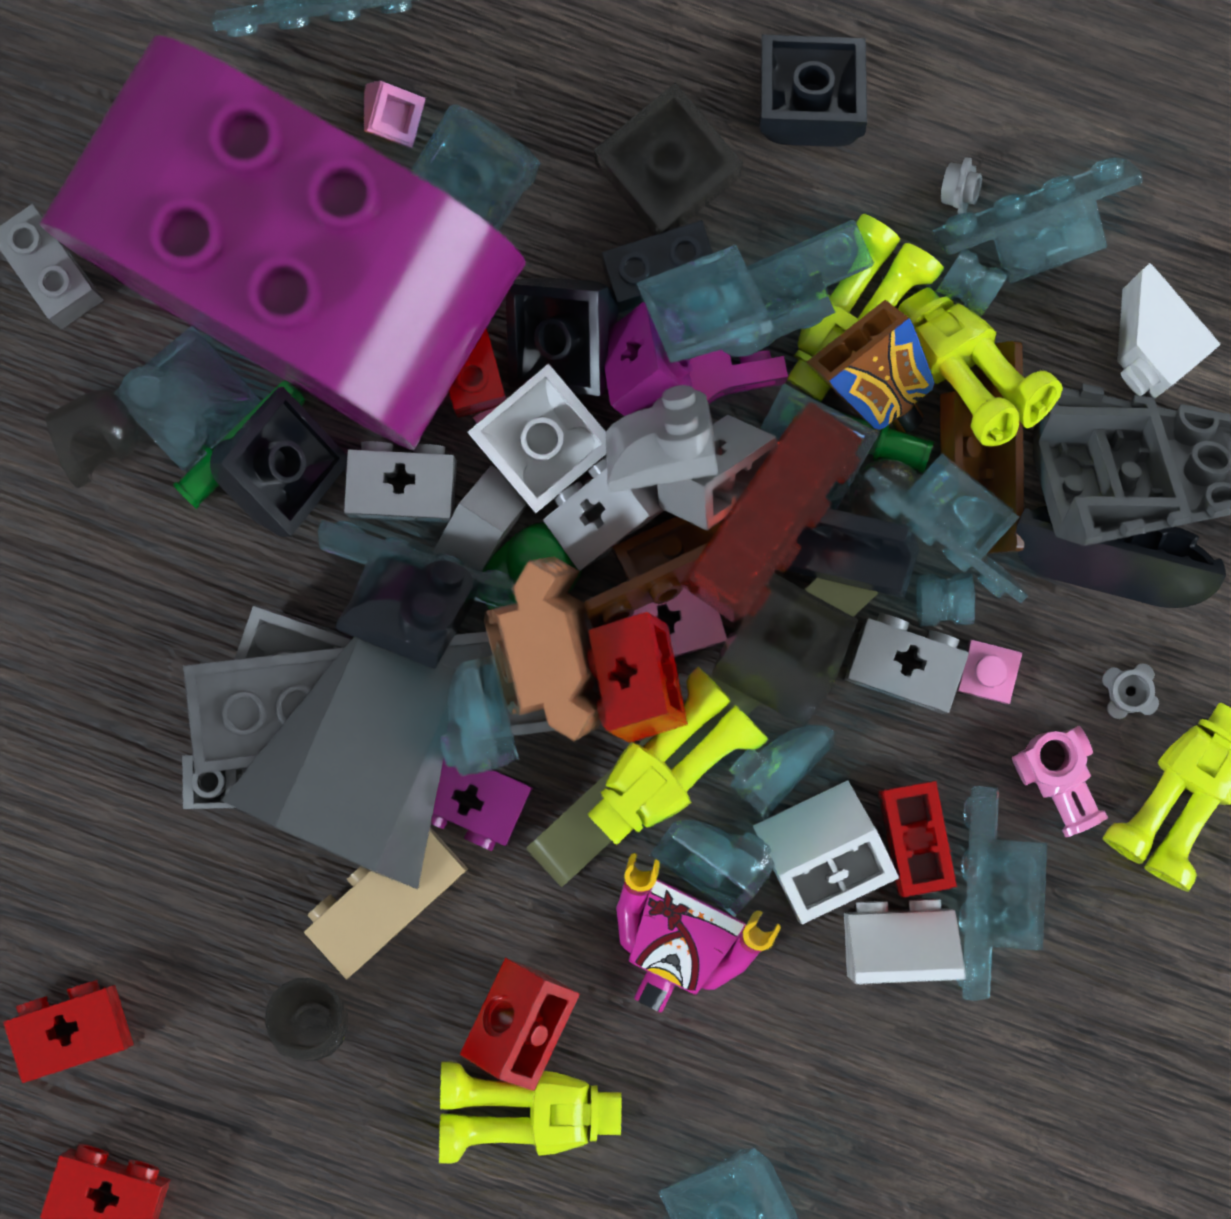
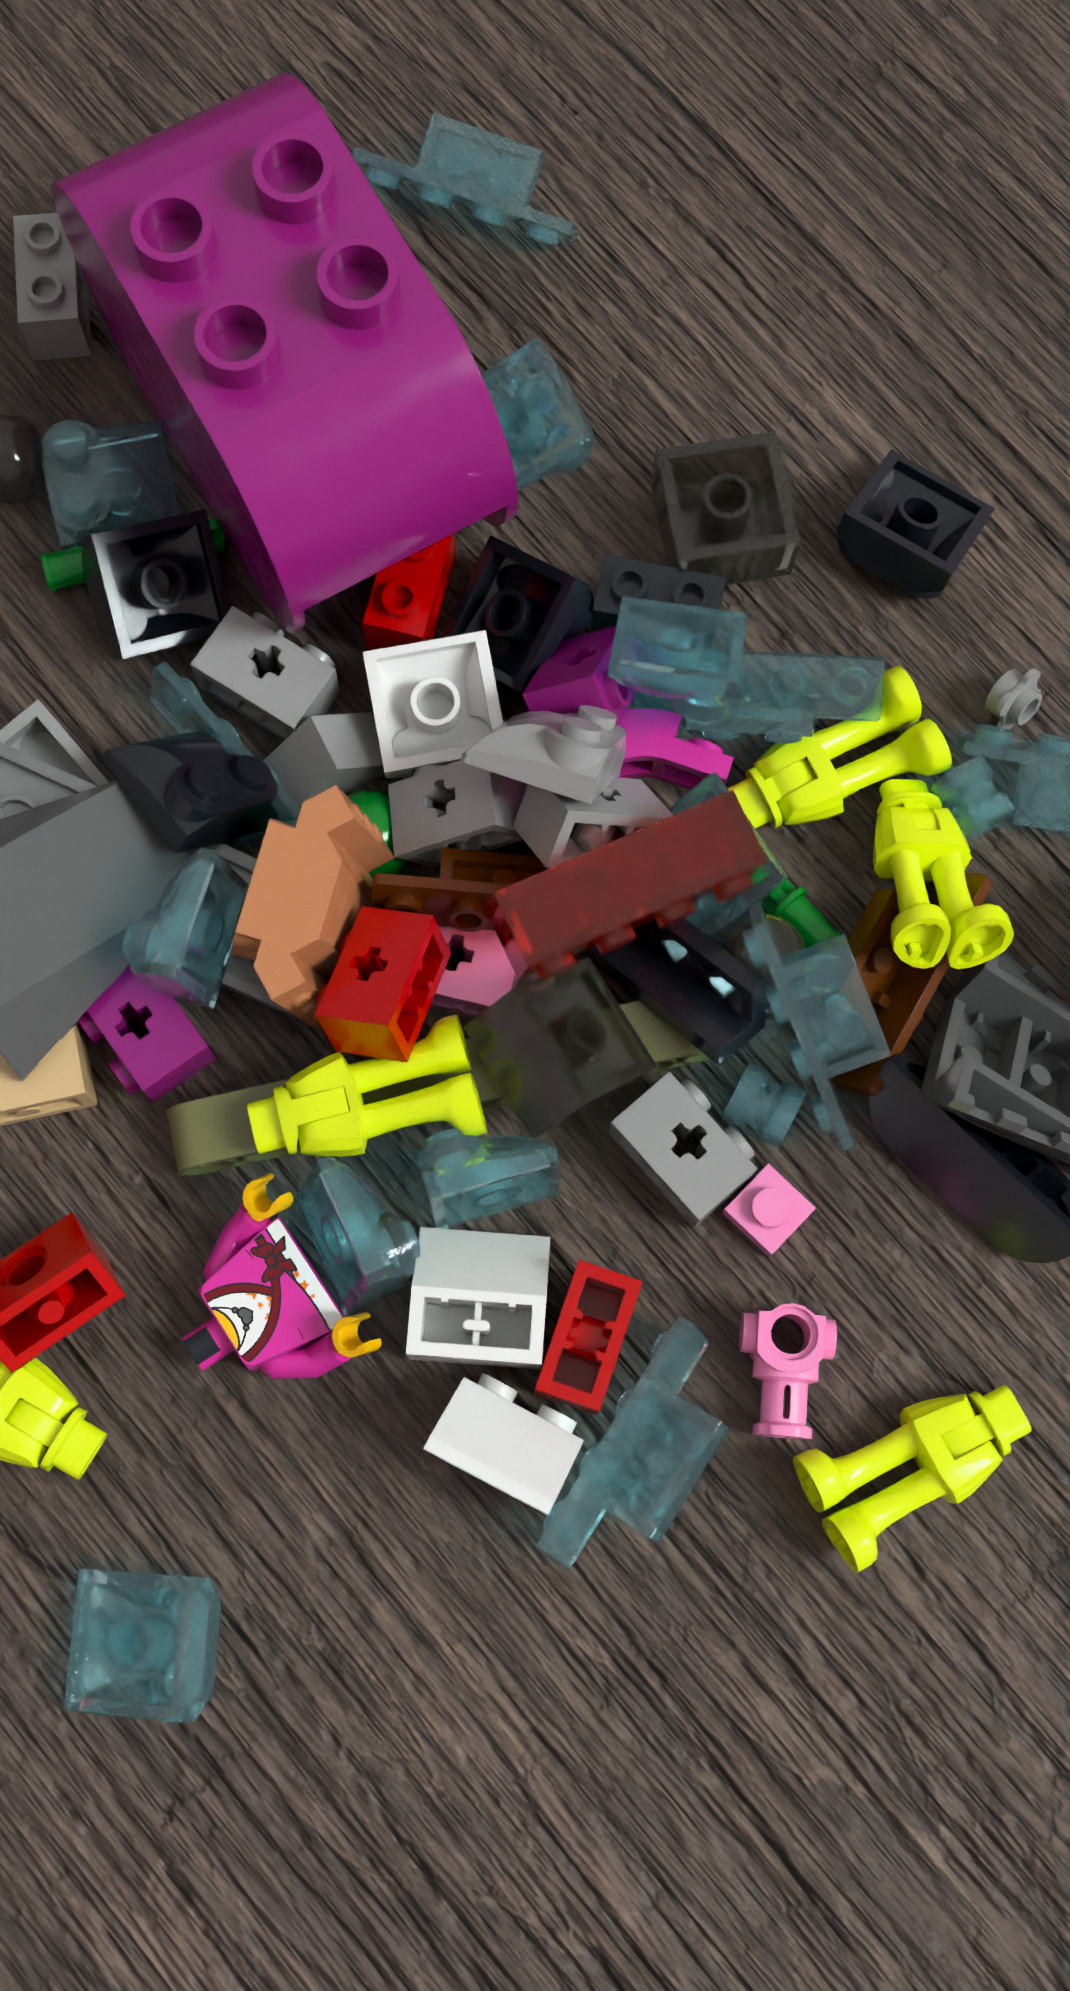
camera: 25 degrees right, 10 degrees down
(392, 113) = (484, 329): bright pink slope -> none
(878, 369) = (825, 824): torso -> none
(1144, 697) = (930, 1312): light grey plate -> none

